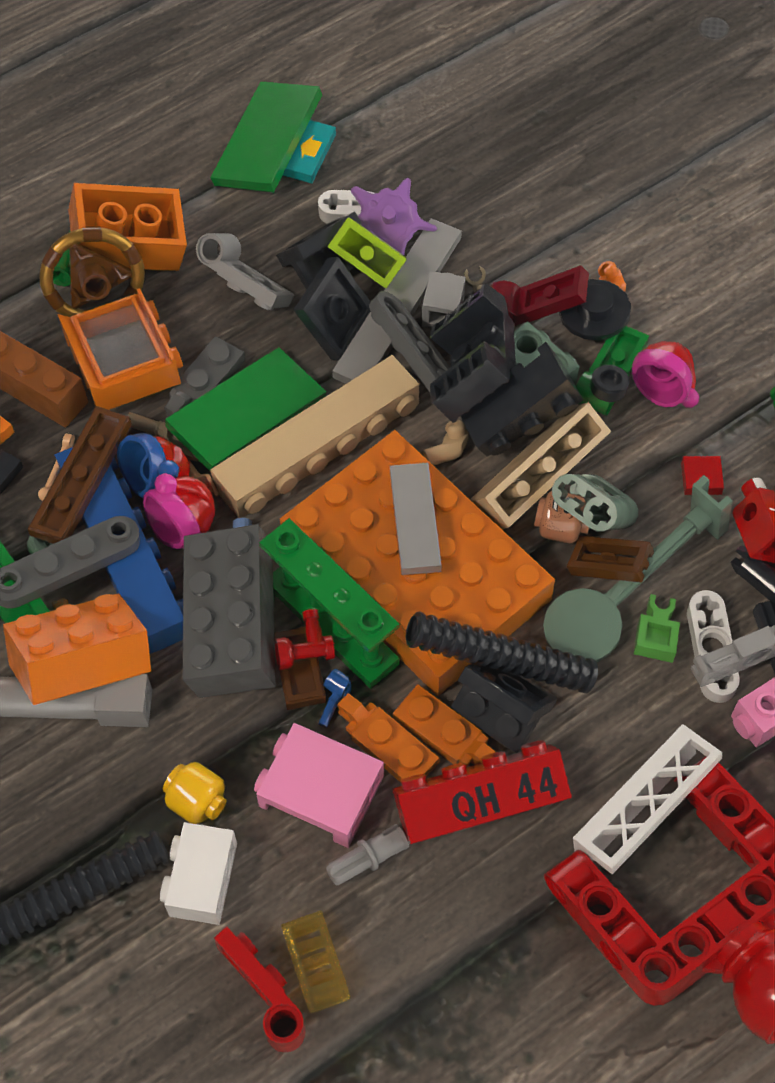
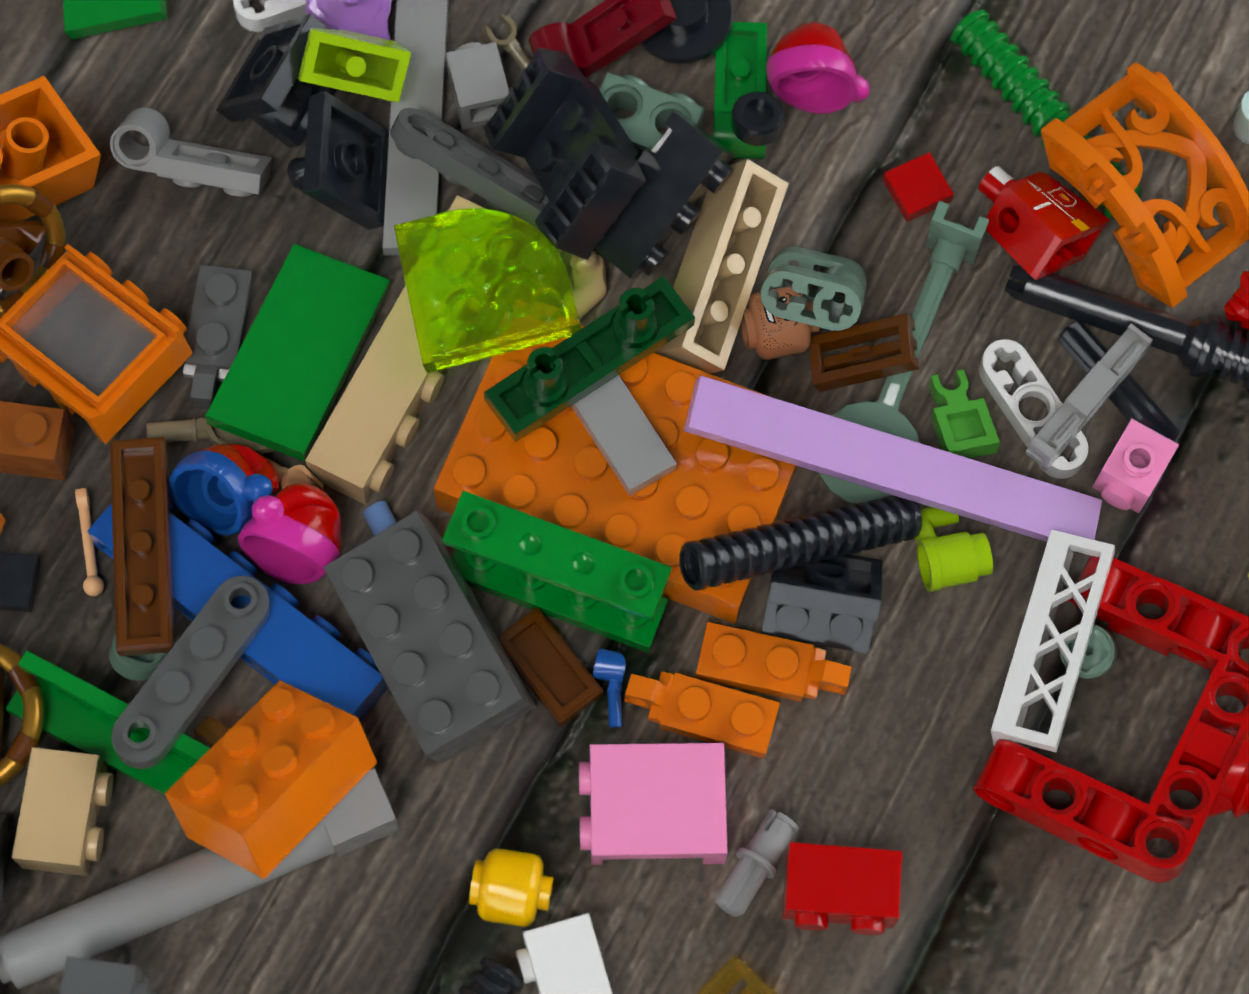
camera: 30 degrees left, 10 degrees up
(315, 646) = (562, 631): red piece -> none
(376, 410) = (482, 286): none -> clear neon green plate
(416, 474) = (589, 358): none -> dark green plate
(416, 897) = (842, 887): none -> red brick
(481, 792) = (855, 724): red brick -> none
(590, 632) = (887, 462): none -> lavender tile
(605, 715) = (952, 557): none -> lime piece
(677, 825) = (1099, 655): none -> sand green tile

